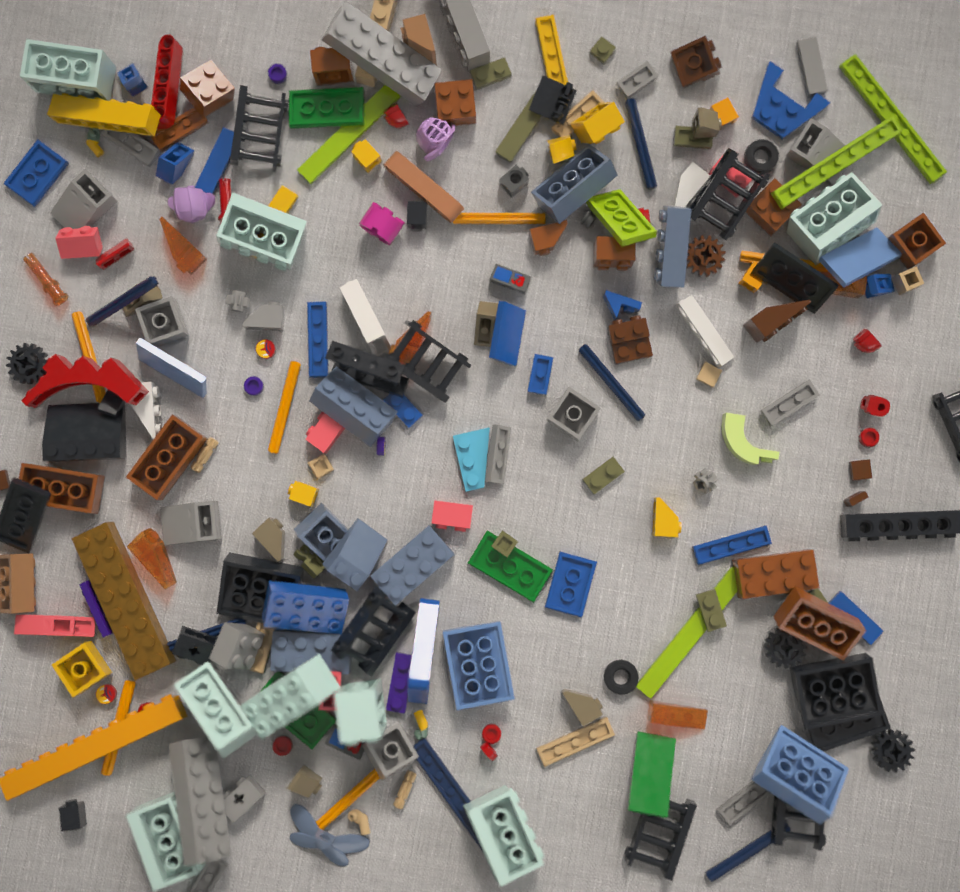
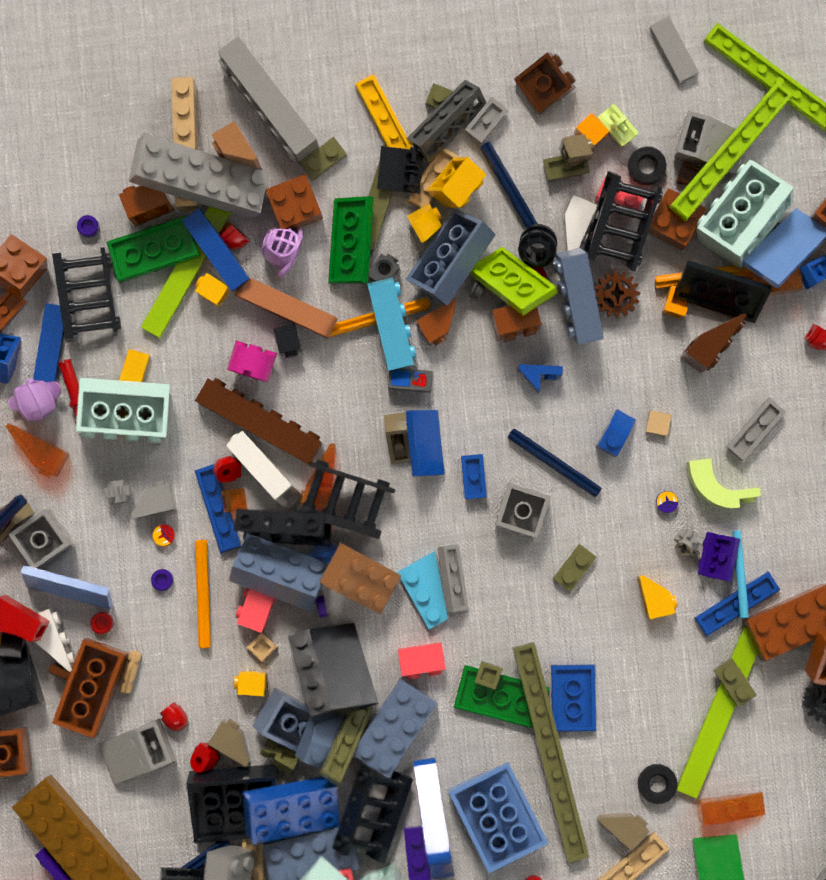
camera: 10 degrees left, 0 degrees up
(144, 436) = (59, 671): none -> reddish brown tile
(153, 555) = (106, 799): clear orange slope -> none
(192, 407) = (102, 623): none -> red tile
(230, 503) = (174, 717): none -> red piece
(245, 544) = (204, 758): none -> red piece
(332, 333) = (234, 499): none -> clear orange tile
(335, 308) = (227, 469): none -> red piece
(368, 564) = (345, 745): none -> olive tile
(373, 276) = (259, 421): none -> reddish brown brick
(374, 502) = (332, 671): none -> black slope
(378, 121) = (216, 249): none -> blue tile
(420, 430) = (360, 578): none -> medium nougat brick
(494, 147) = (351, 240): none -> green tile
(507, 225) = (390, 323): none -> medium azure brick
(538, 624) = (550, 752): none -> olive plate
(604, 66) = (446, 117): none -> dark grey fence
(629, 339) = (561, 410): reddish brown plate -> none
(655, 185) = (541, 235): none -> black piece
(670, 372) = (616, 433): none -> blue slope
(697, 442) = (667, 501): none -> tile
(704, 331) = (640, 377): white fence -> none
(727, 500) = (718, 556): none -> dark purple bracket
(742, 521) = (740, 576): none -> medium azure bar
(747, 115) = (618, 125): none -> yellowish green hips
(778, 111) = (651, 110): blue wing -> none
(793, 171) = (687, 173): none -> reddish brown tile

